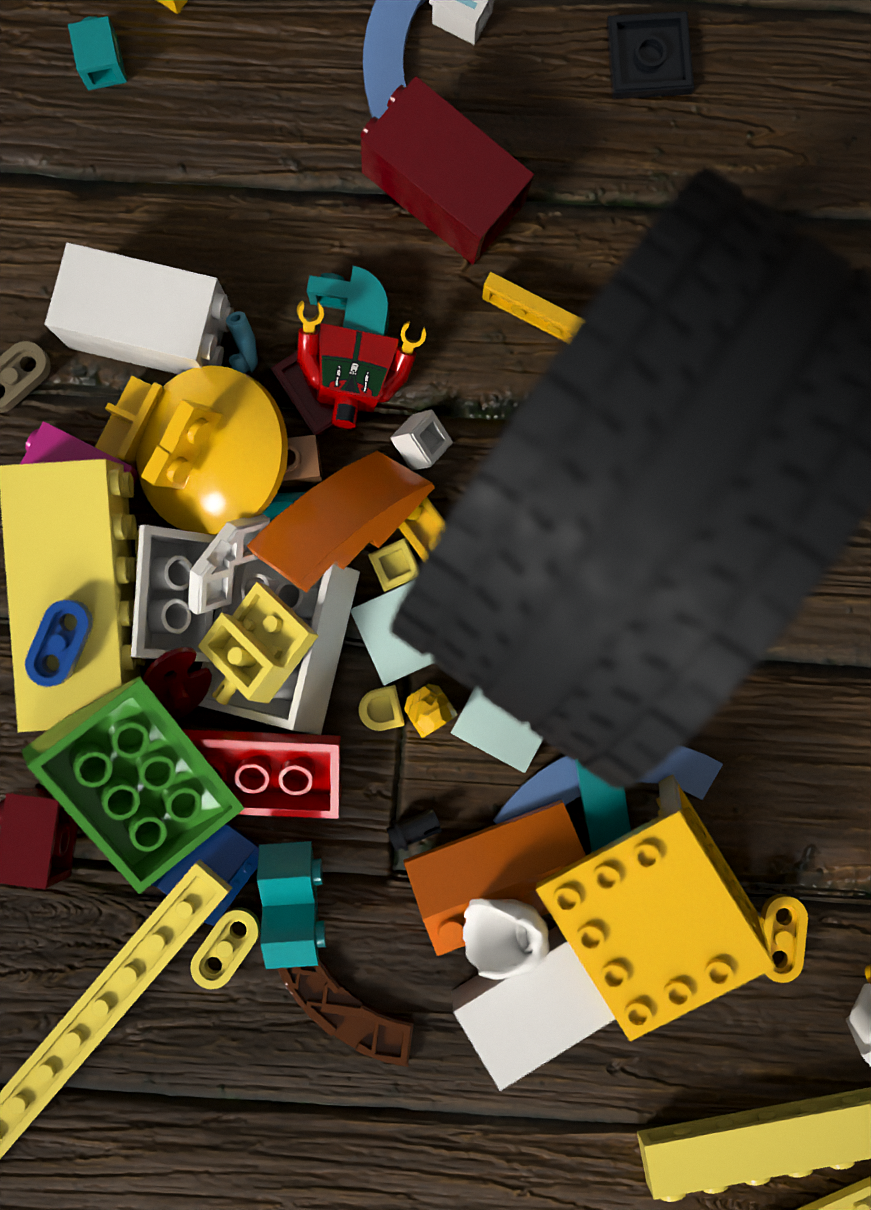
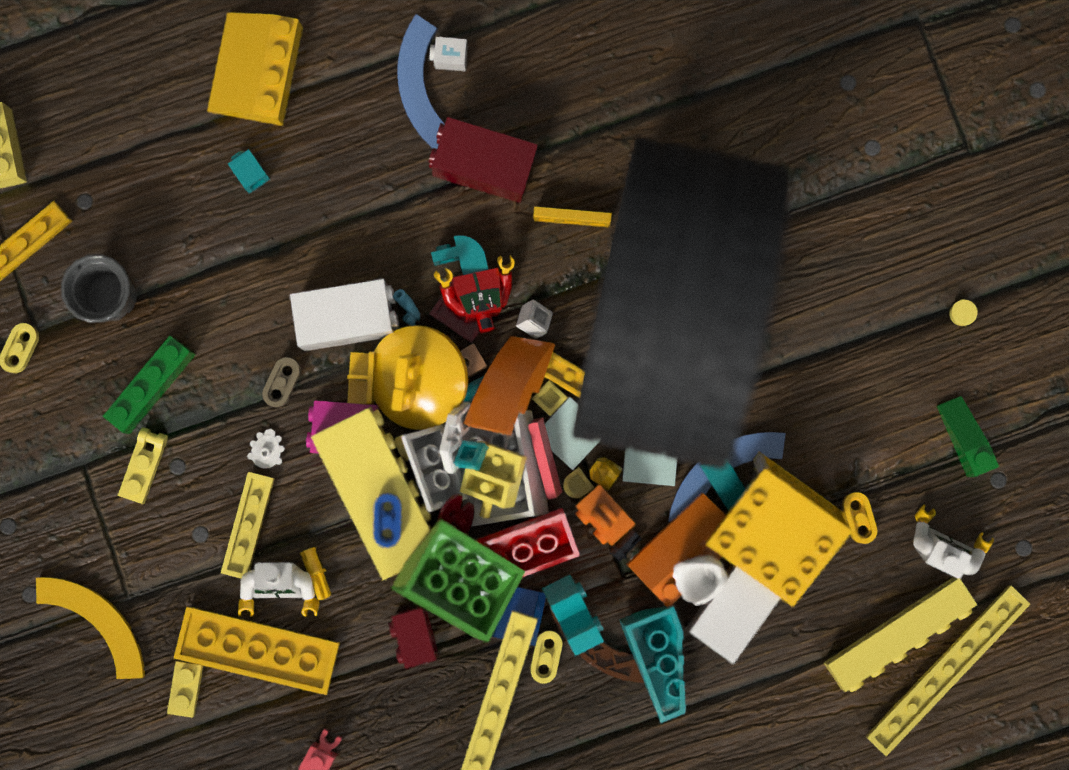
camera: 15 degrees left, 0 degrees up
(235, 598) = (471, 455): none -> teal tile
(348, 650) = (545, 458): none -> coral tile
(396, 1007) = (657, 649): none -> teal wedge
(399, 775) = (604, 516): none -> orange brick
(649, 55) = (571, 35): black tile -> none

